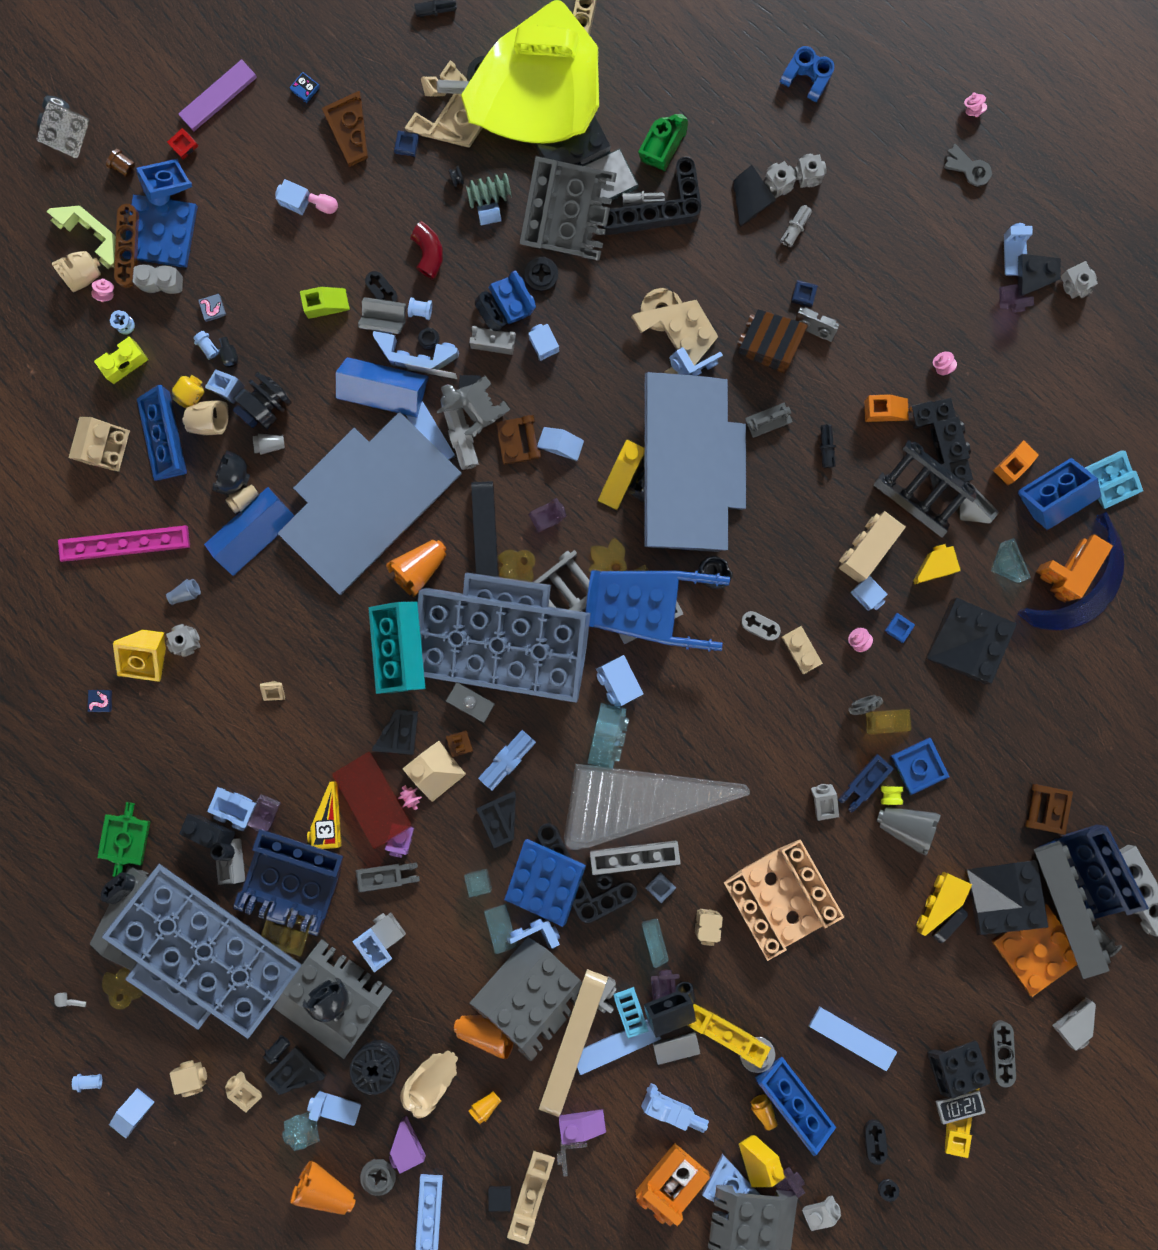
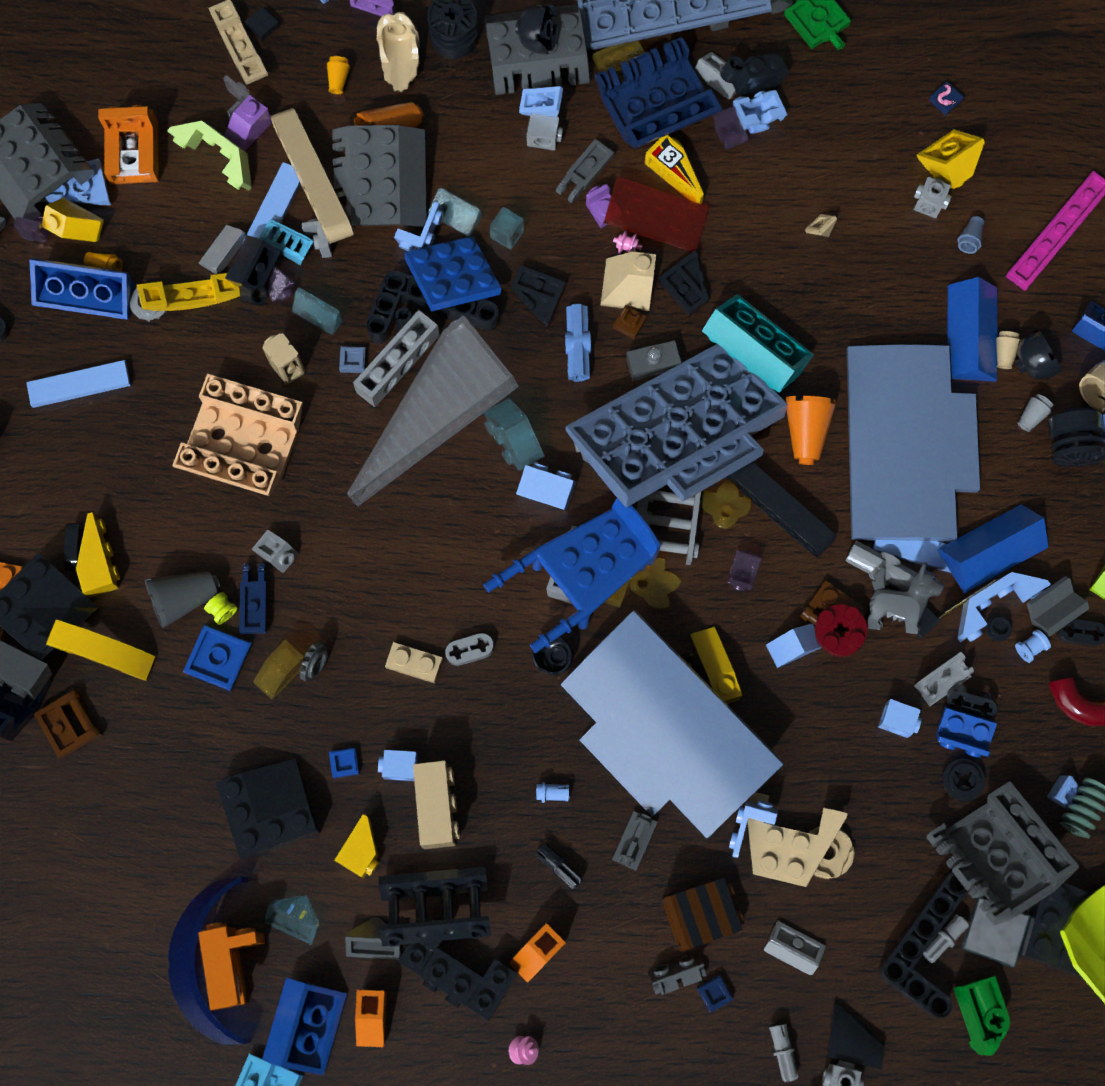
camera: 135 degrees right, 10 degrees down
(524, 411) = (832, 642): none -> dark red plate
(617, 1095) = (238, 166): none -> yellowish green slope
(671, 1111) = (183, 197): light blue piece -> none
(733, 275) = (794, 948): none -> light grey slope
(791, 493) = (552, 792): none -> light blue pin
(860, 639) = (369, 717): bright pink wheel -> none
(993, 835) = (100, 649): none -> yellow slope

